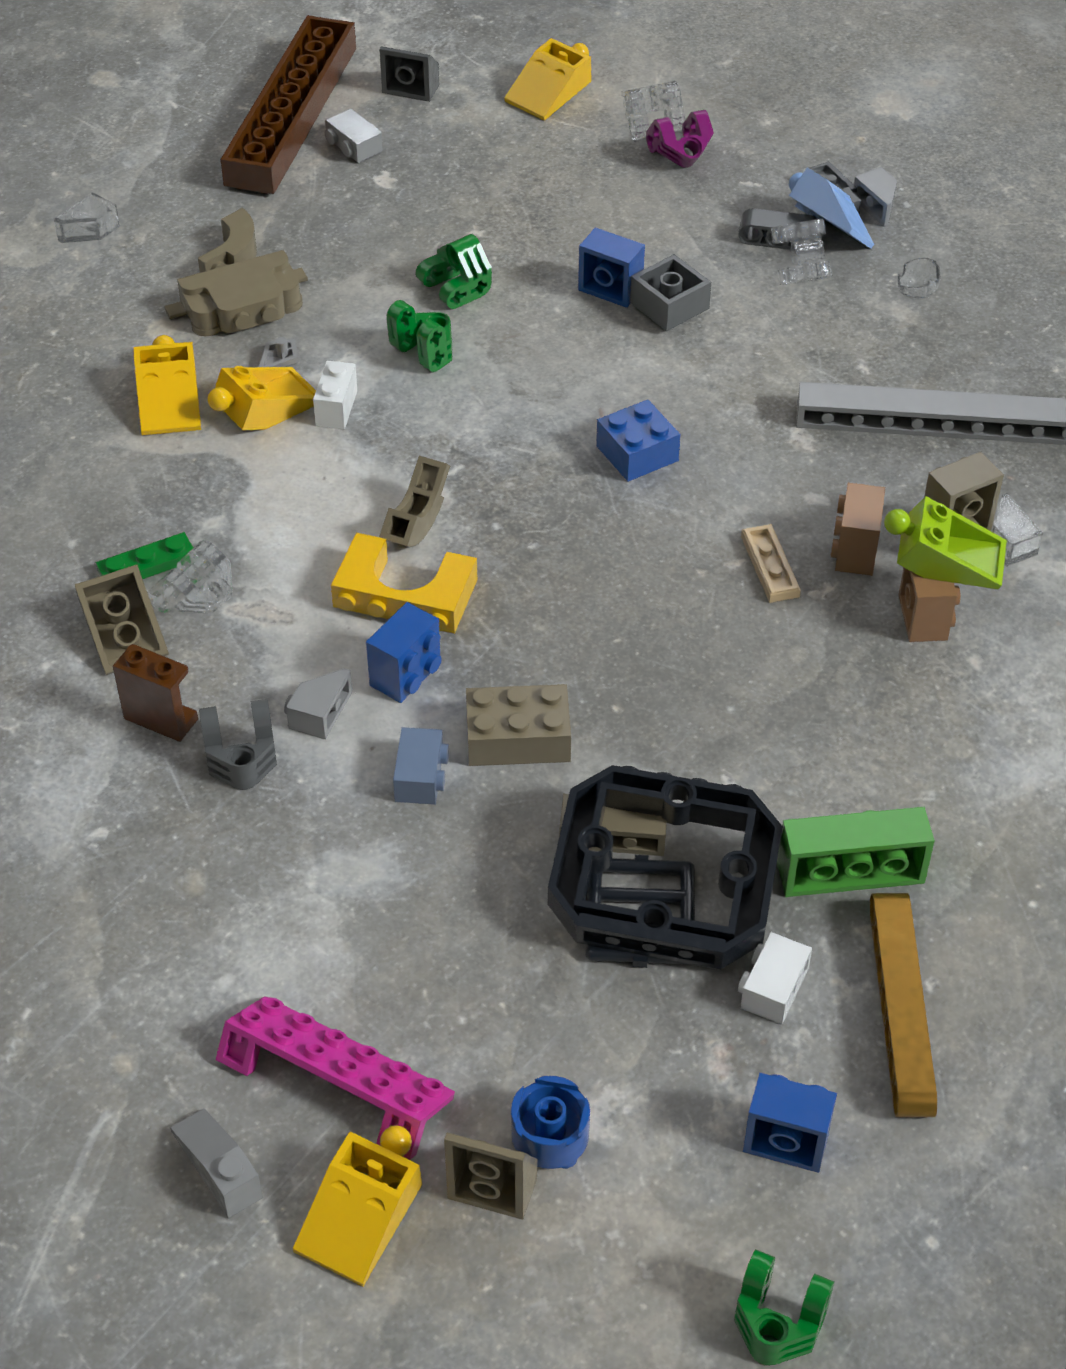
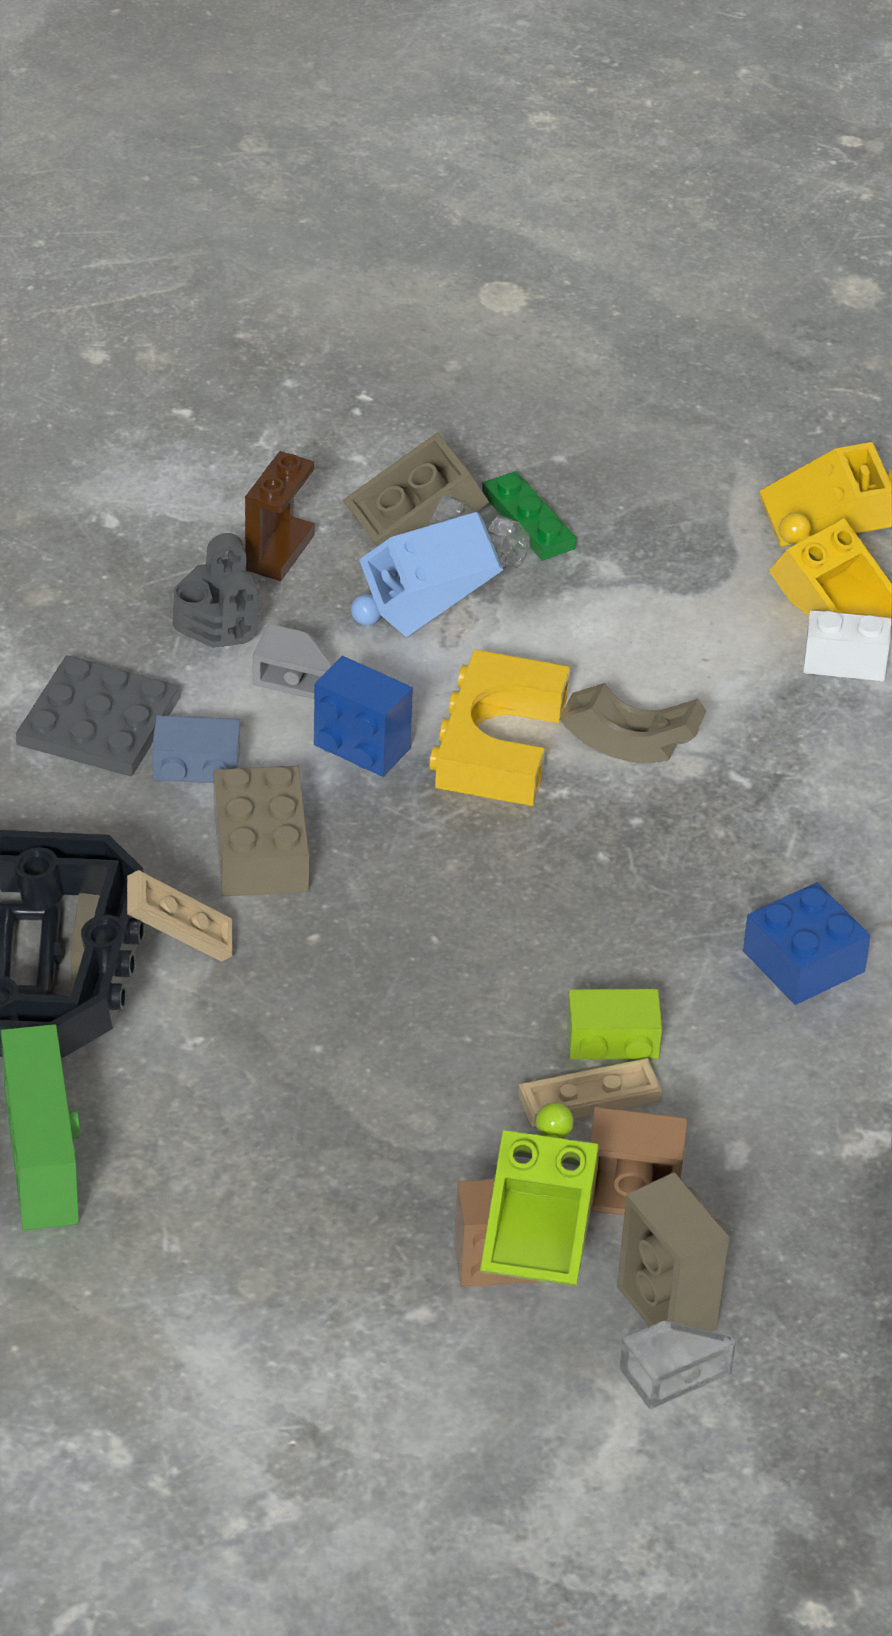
camera: 85 degrees right, 5 degrees down
(240, 598) = (425, 572): none -> light blue slope
(360, 836) = (97, 715): none -> dark grey plate
(637, 759) = (179, 915): none -> tan tile
(716, 541) = (614, 1024): none -> lime brick

